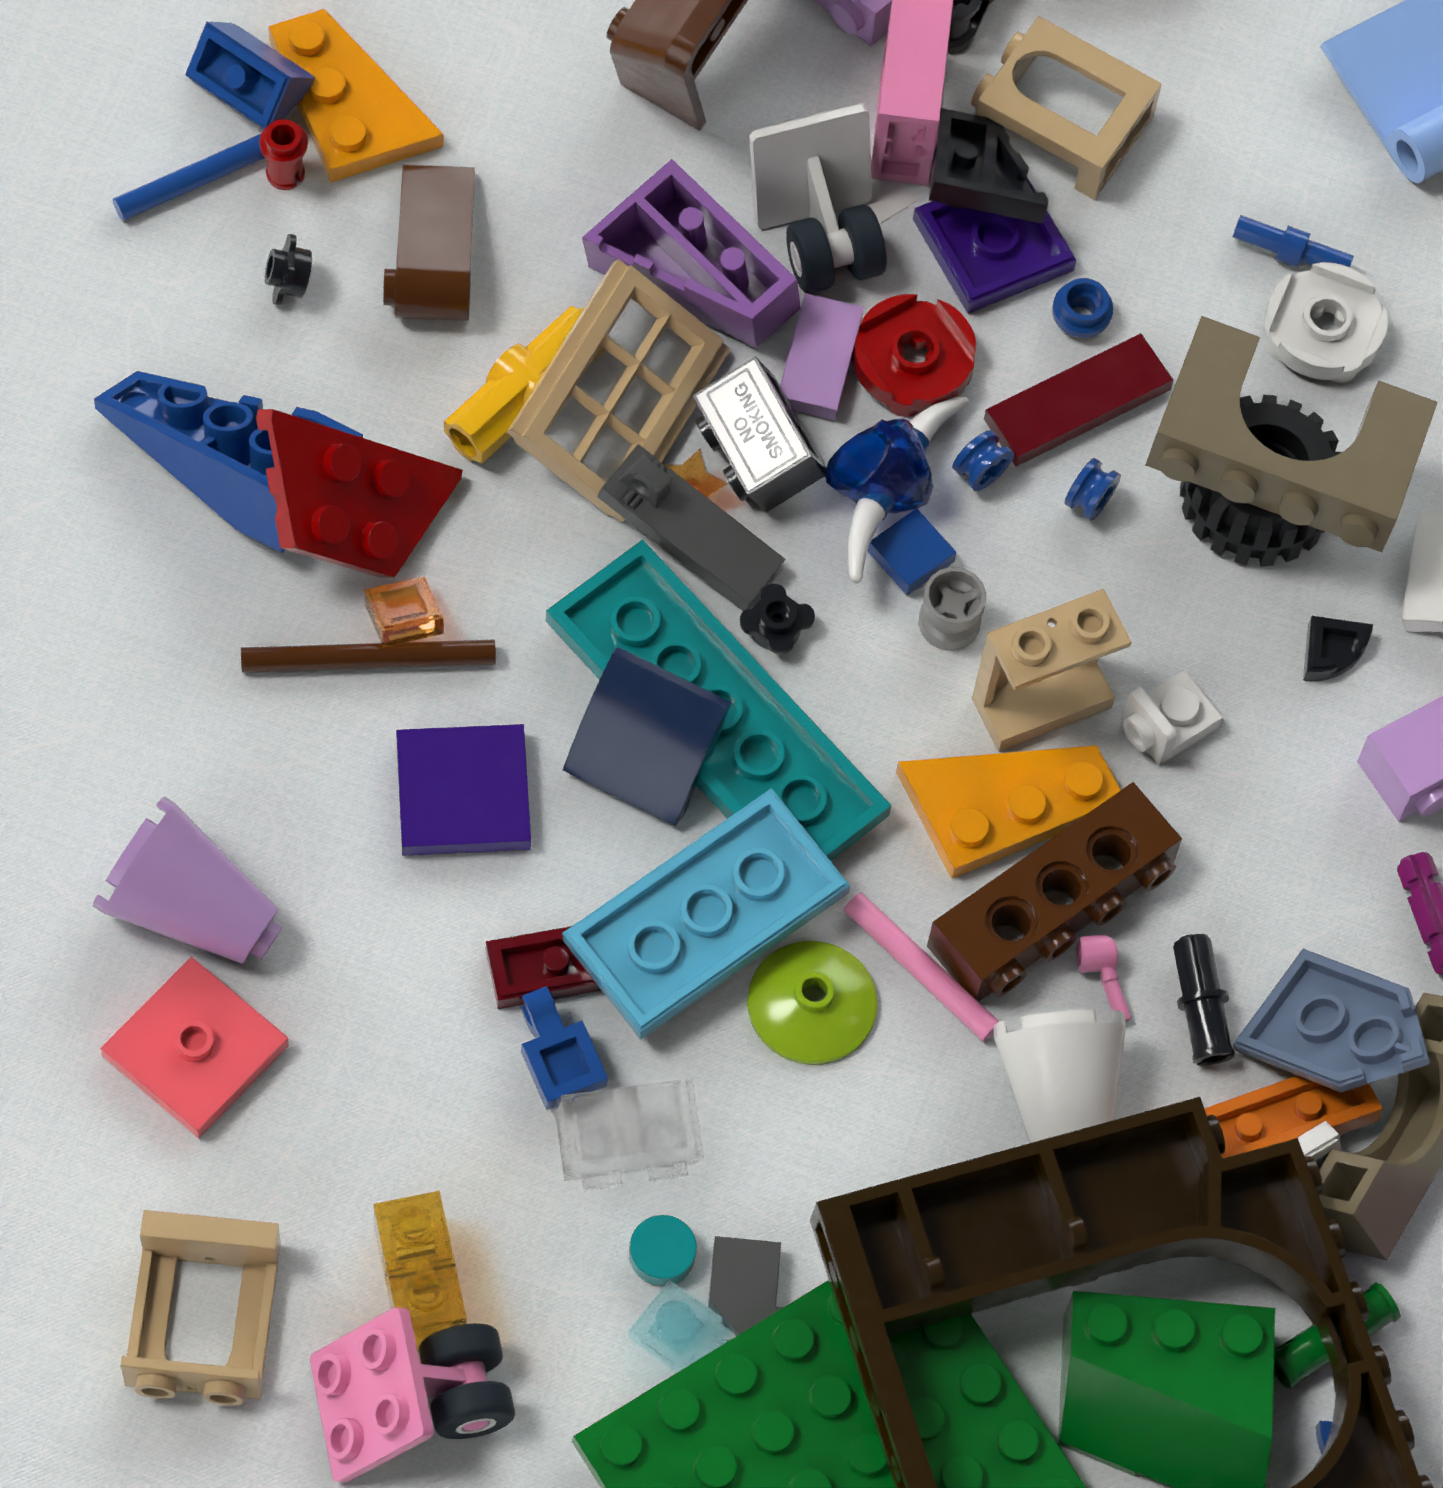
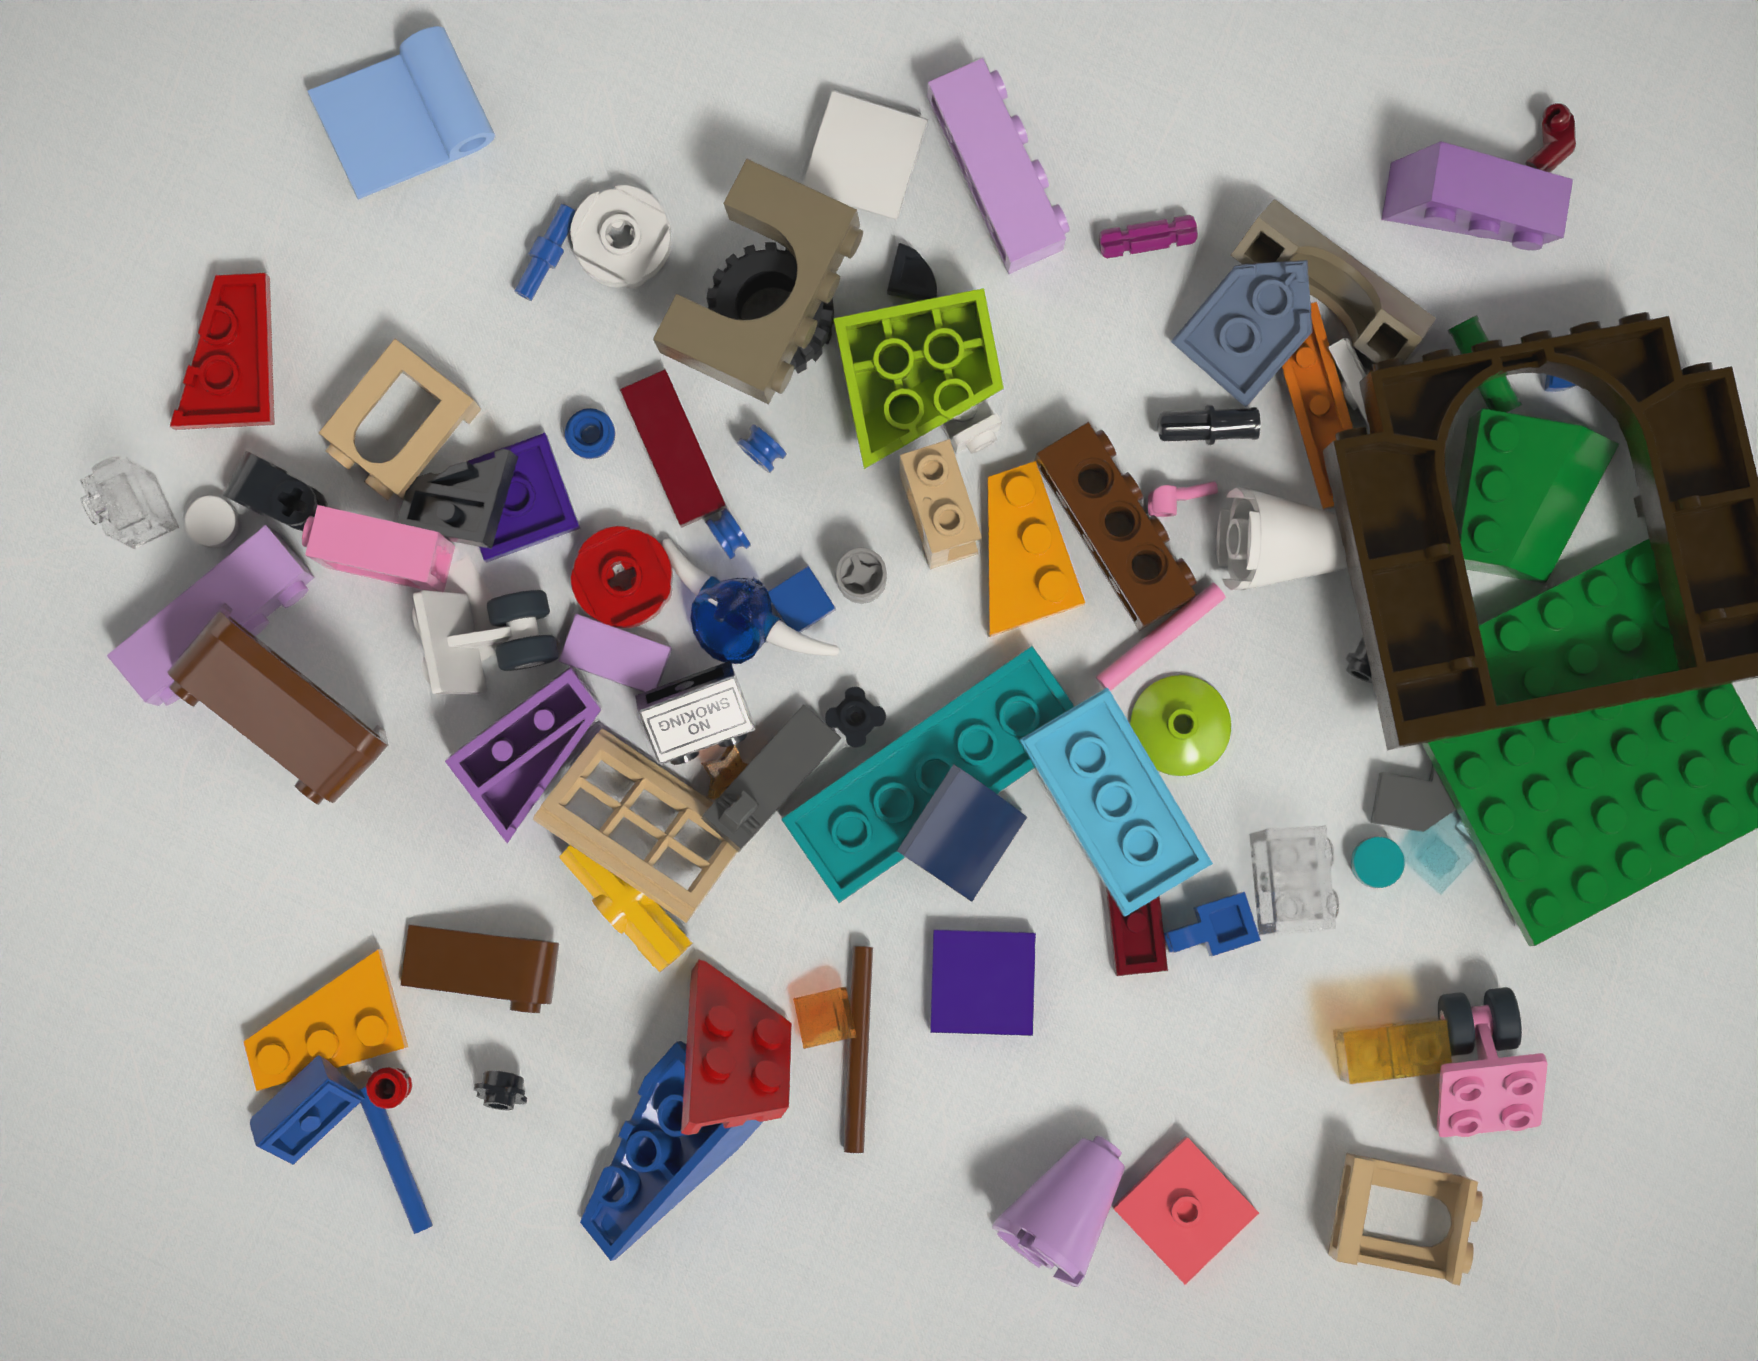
camera: 75 degrees left, 20 degrees up
(1224, 640) = (916, 368): none -> lime wedge

